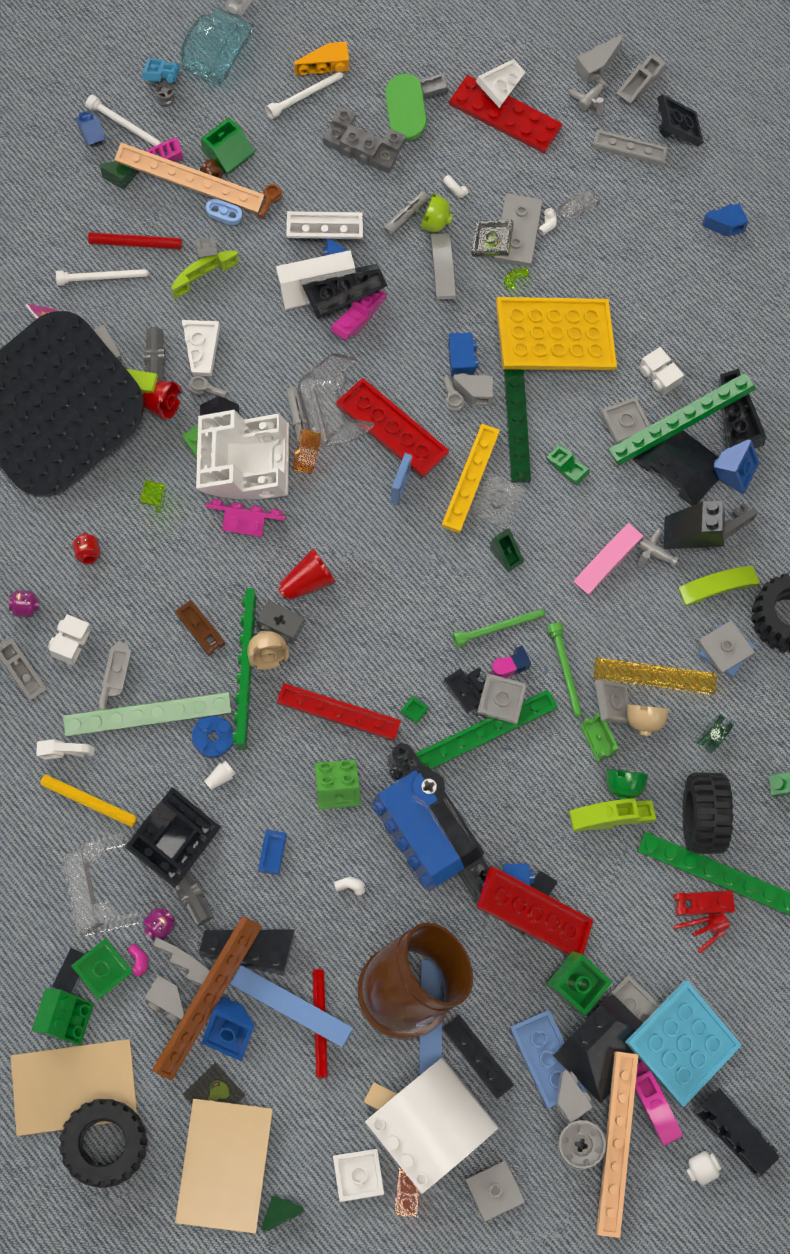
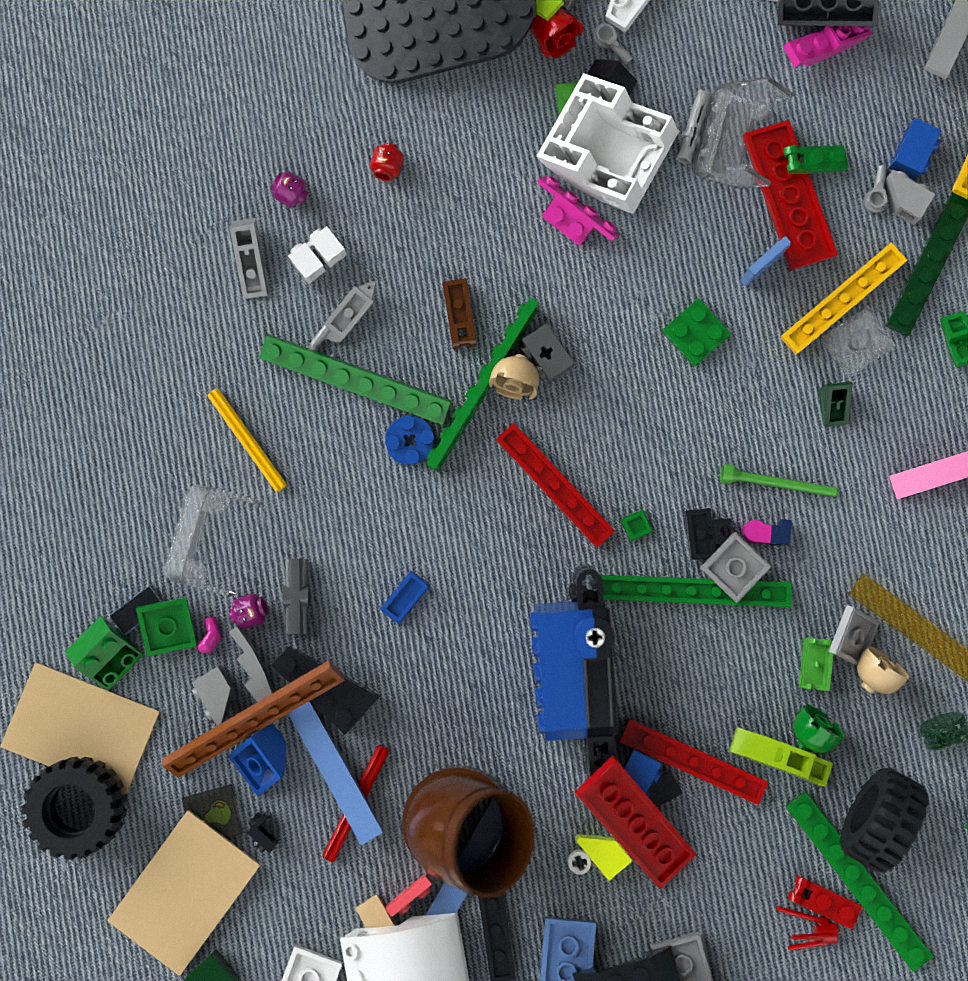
camera: 35 degrees right, 15 degrees up
(56, 749) = (242, 368): white piece -> none
(153, 494) = (489, 138): clear neon green panel -> none
(172, 837) = (307, 529): black slope -> none
(220, 775) = (397, 486): white cone -> none
(263, 1089) = (262, 838): none -> black bracket
(306, 577) = (602, 318): red cone -> none
(307, 451) = (681, 175): clear orange slope -> none
(337, 784) = (510, 562): bright green bracket -> none
(352, 883) = (468, 677): white arm -> none
(380, 554) = (696, 332): none -> green plate
(396, 394) = (816, 159): none -> green plate
(396, 1077) = (401, 903): none -> coral plate
(511, 980) = (574, 868): none -> white bush
(526, 955) = (605, 853): none -> neon yellow slope
(553, 853) = (693, 761): none -> red plate
(556, 631) = (837, 523): bright green piece -> none
(579, 983) = (641, 916): green brick -> none

